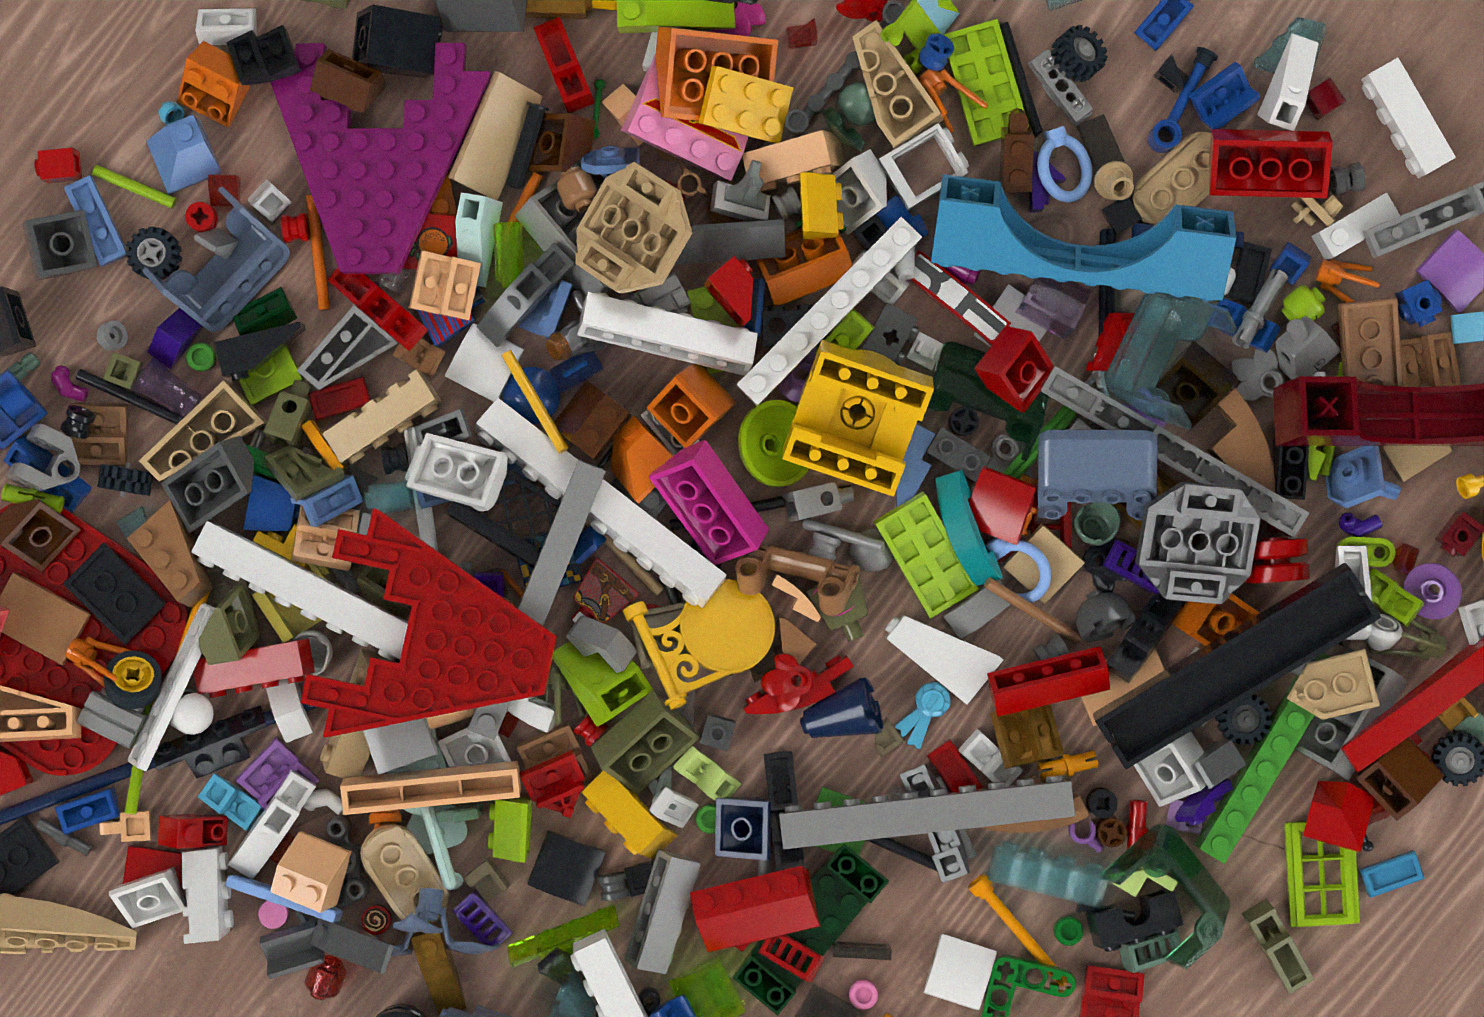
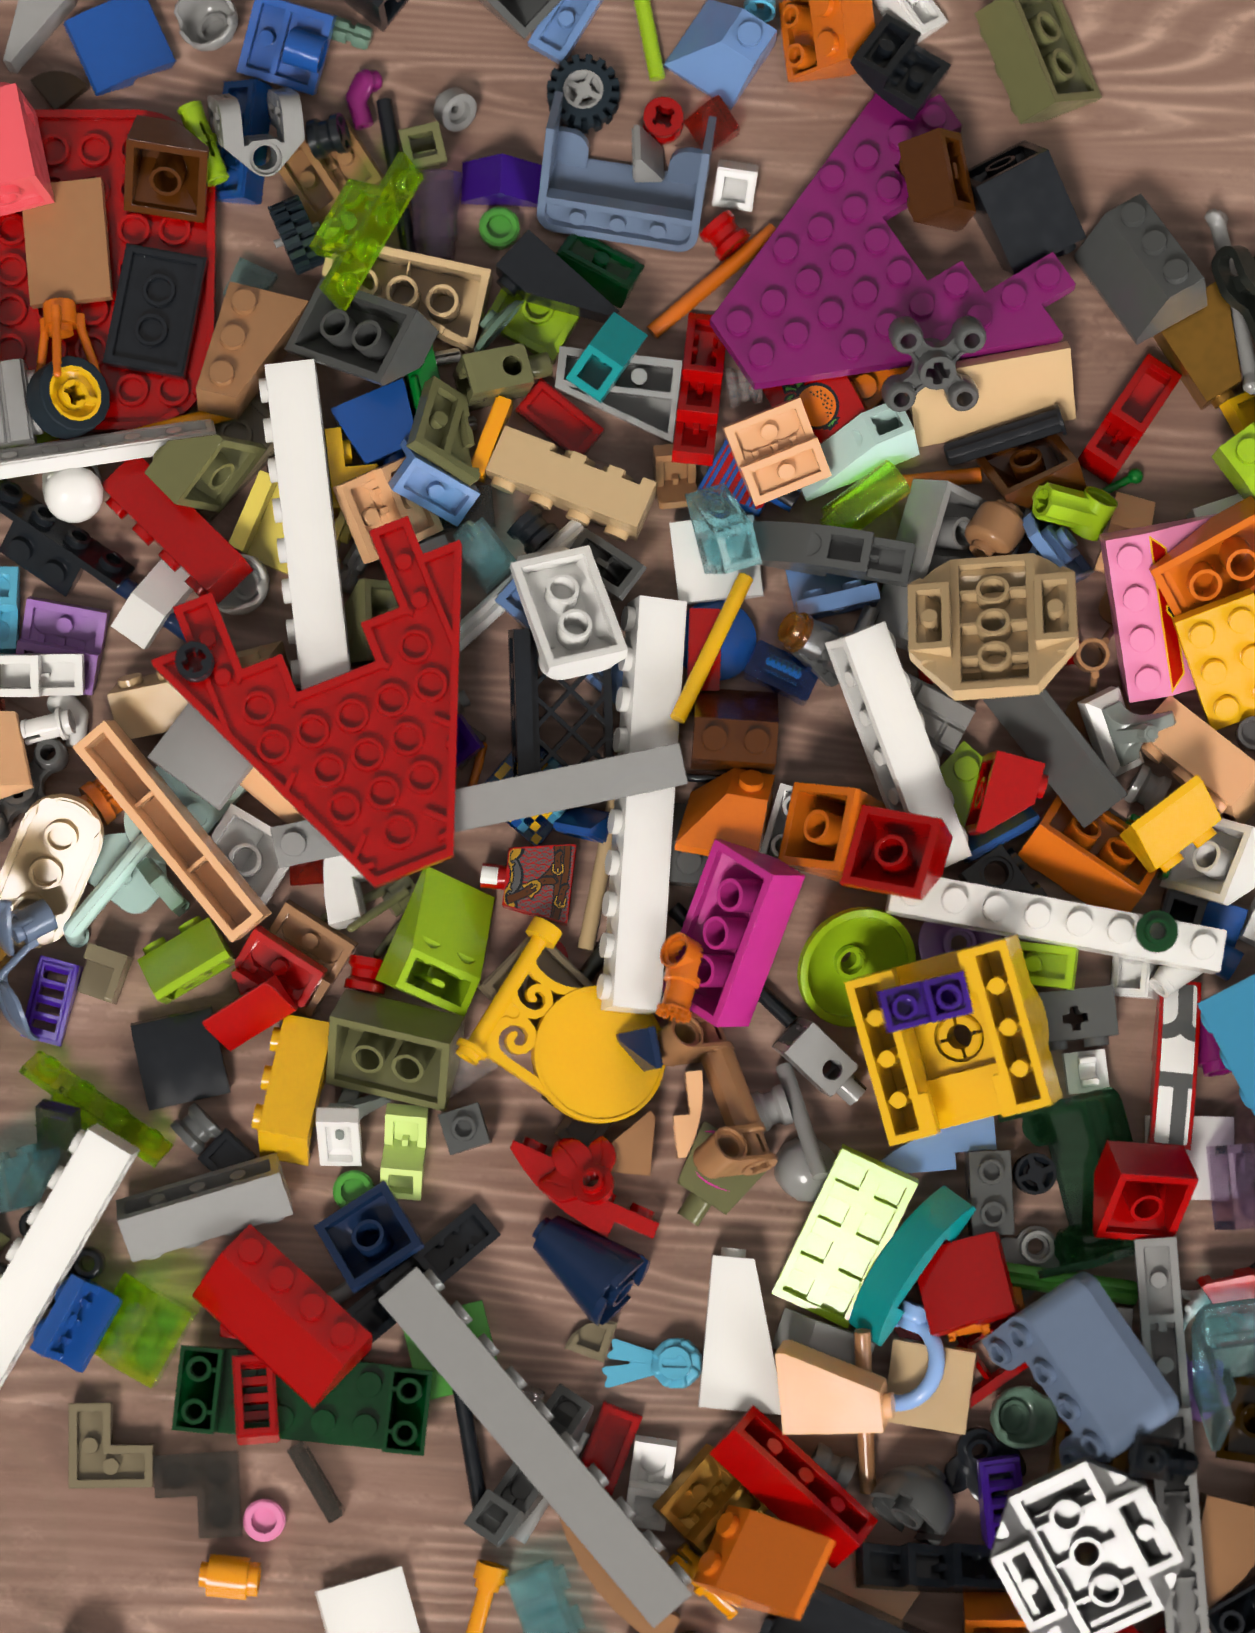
camera: 55 degrees right, 5 degrees down
(146, 439) = (361, 226): none -> clear neon green bracket
(257, 399) = (495, 323): none -> sand green piece
(322, 348) = (606, 357): none -> teal slope
(323, 811) = (49, 726): none -> white pin
(348, 705) = (207, 663): none -> black bush
(455, 159) = (933, 363): none -> dark grey gear
(470, 349) = (722, 530): none -> clear light blue slope
(518, 400) = (700, 624): none -> red sticker
(568, 812) = (250, 1013): none -> red slope
(593, 637) = (480, 902): light grey slope -> none
(601, 131) = (1080, 511): none -> lime piece
(714, 551) = (679, 977): none -> orange connector
(728, 378) = (896, 852): none -> red slope
(740, 598) = (642, 1047): none -> dark blue slope
(825, 421) = (924, 1002): none -> dark purple slope
(868, 265) = (1143, 935): none -> dark green plate
(1010, 625) = (829, 1394): none -> light nougat slope
(1080, 728) = (763, 1563): none -> orange slope
(1175, 463) = (1160, 1458): none -> black hinge

